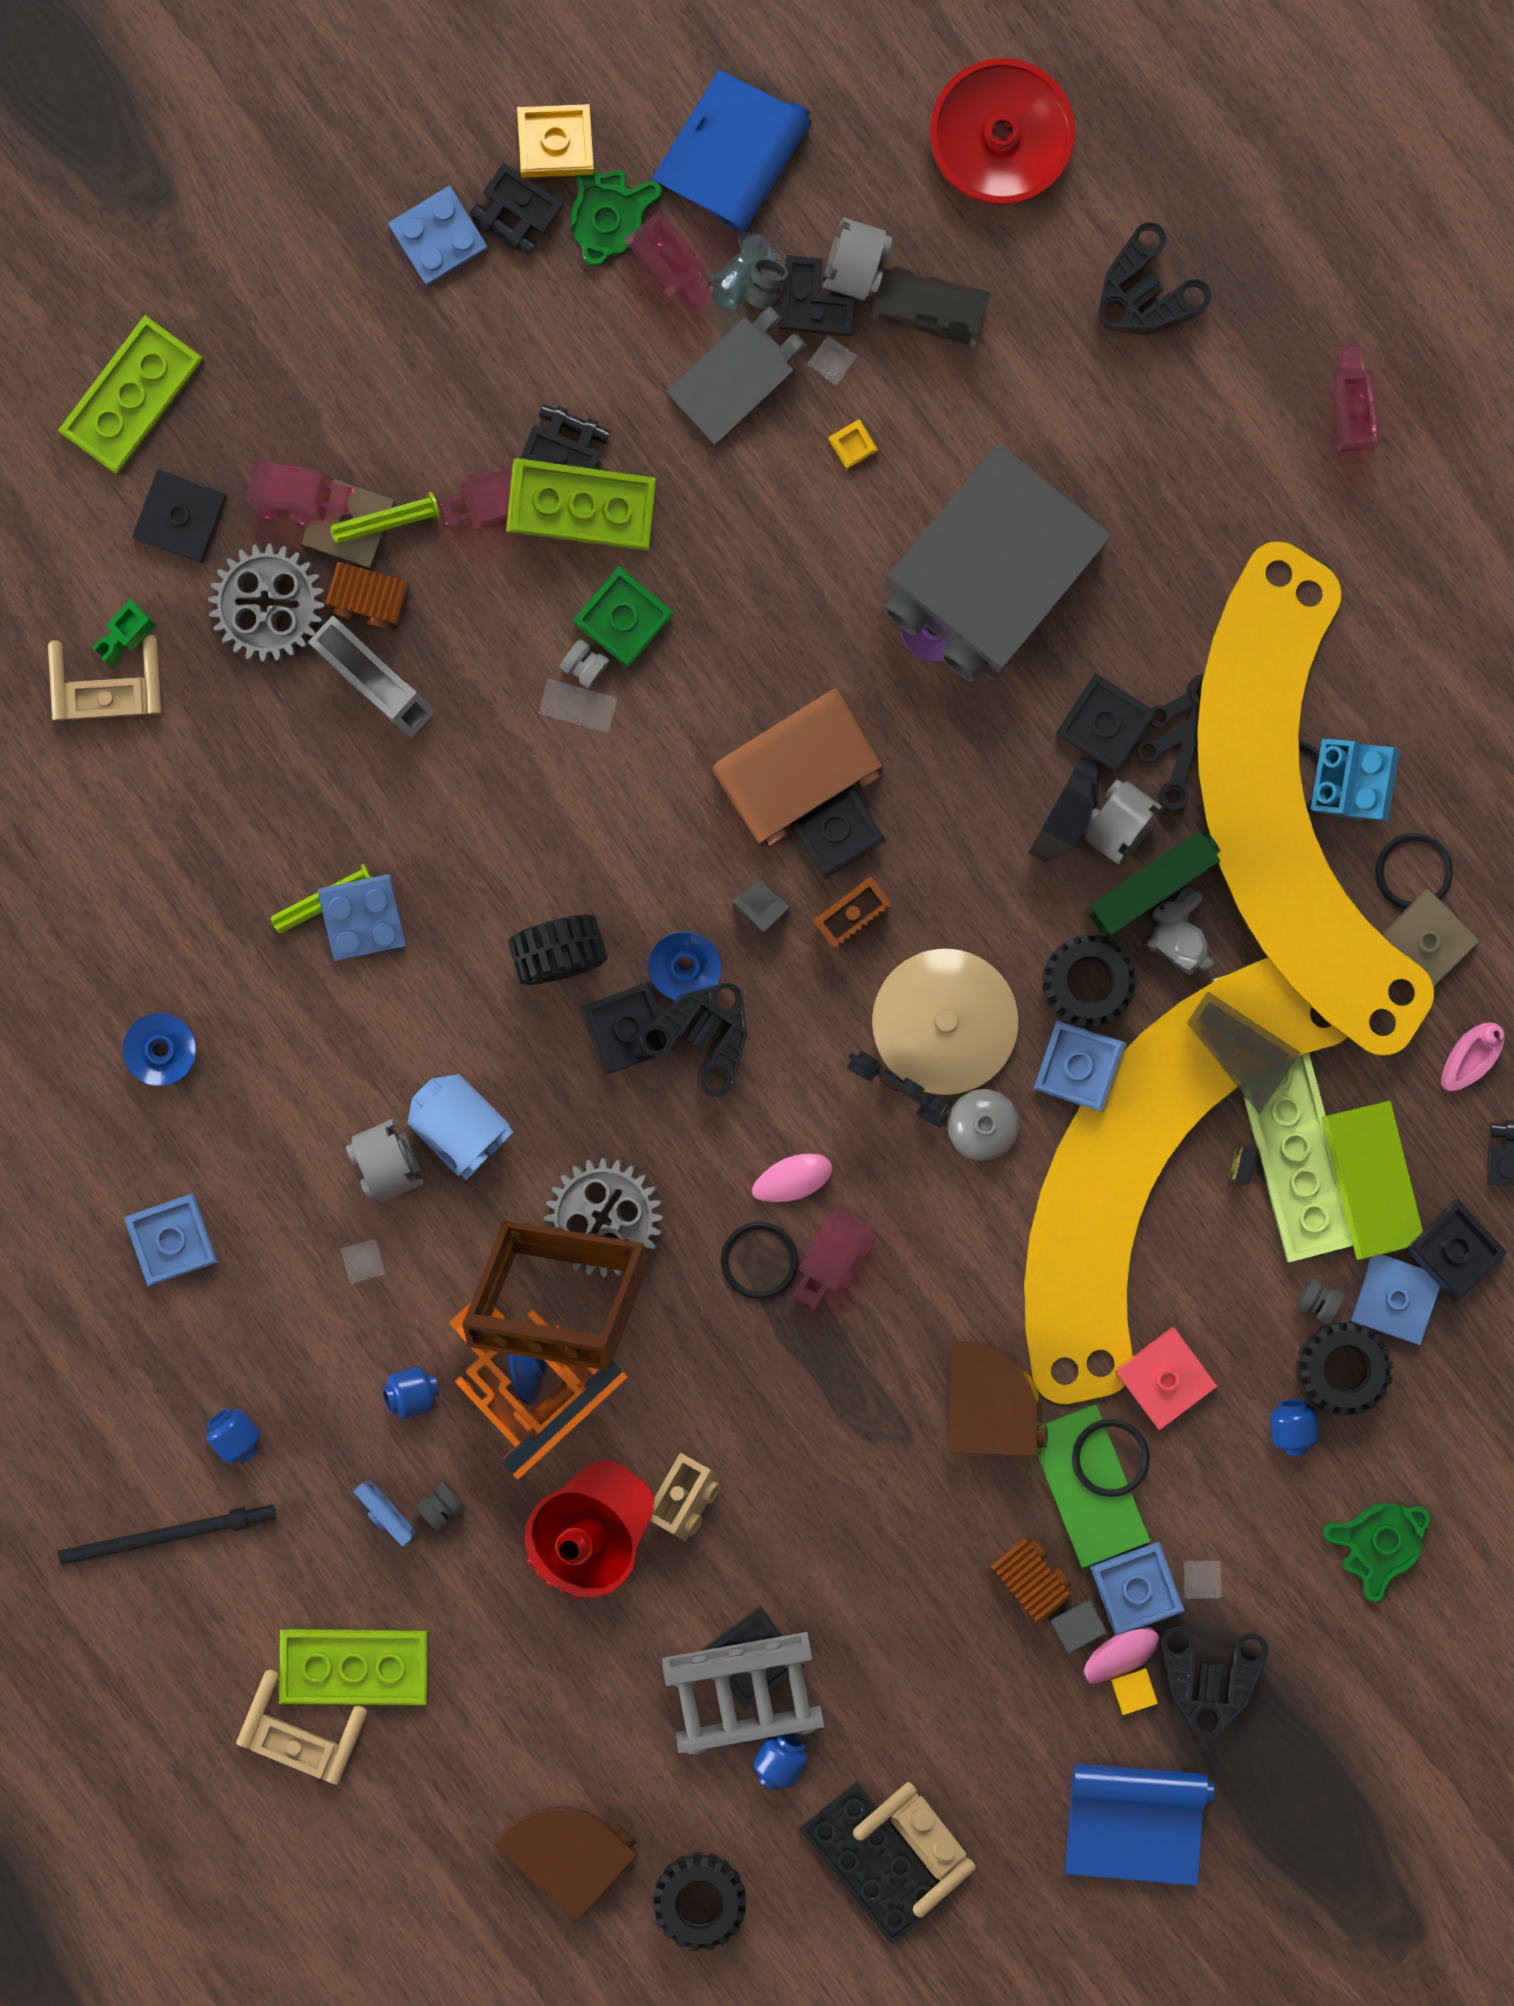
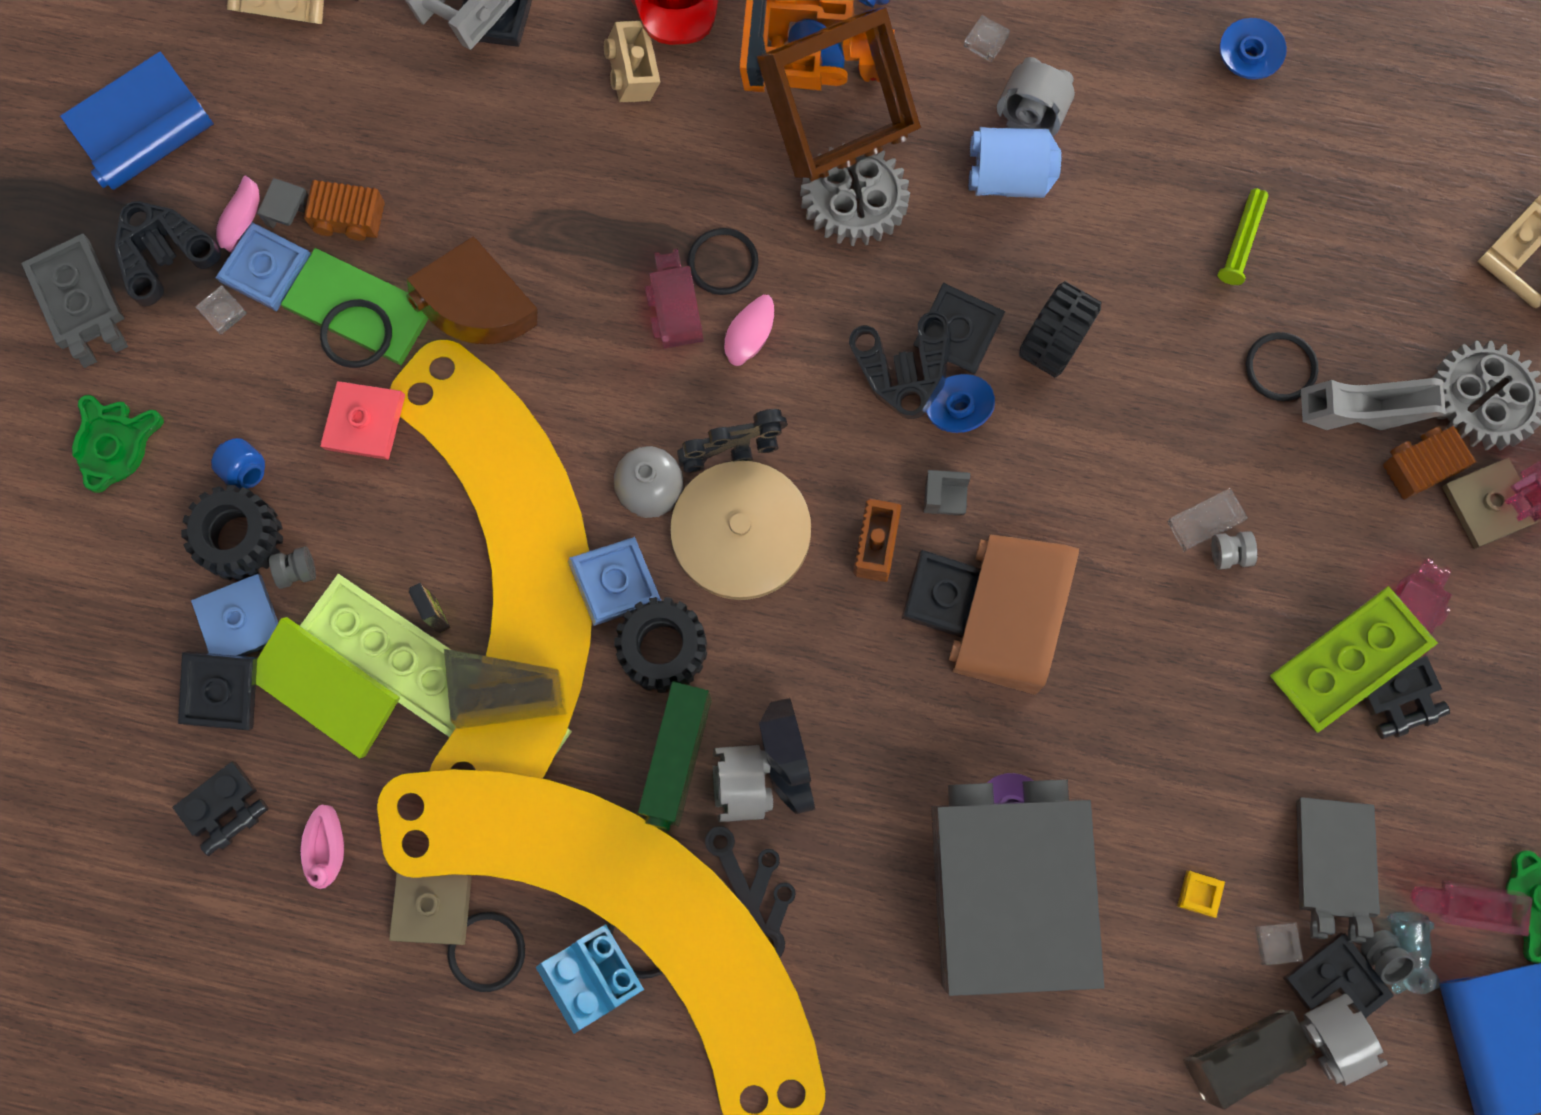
camera: 145 degrees right, 10 degrees down
(361, 917) = (1210, 243): medium blue plate -> none
(385, 519) = (1473, 523): lime axle -> none
(398, 805) = (1285, 336): none -> black tyre
(623, 617) = (1239, 609): green plate -> none
(1106, 723) = (819, 851): black plate -> none
(1134, 1691) = (209, 202): yellow tile -> none
(1177, 937) = (622, 737): light grey animal -> none
(1311, 1700) = (75, 298): none -> dark grey tile

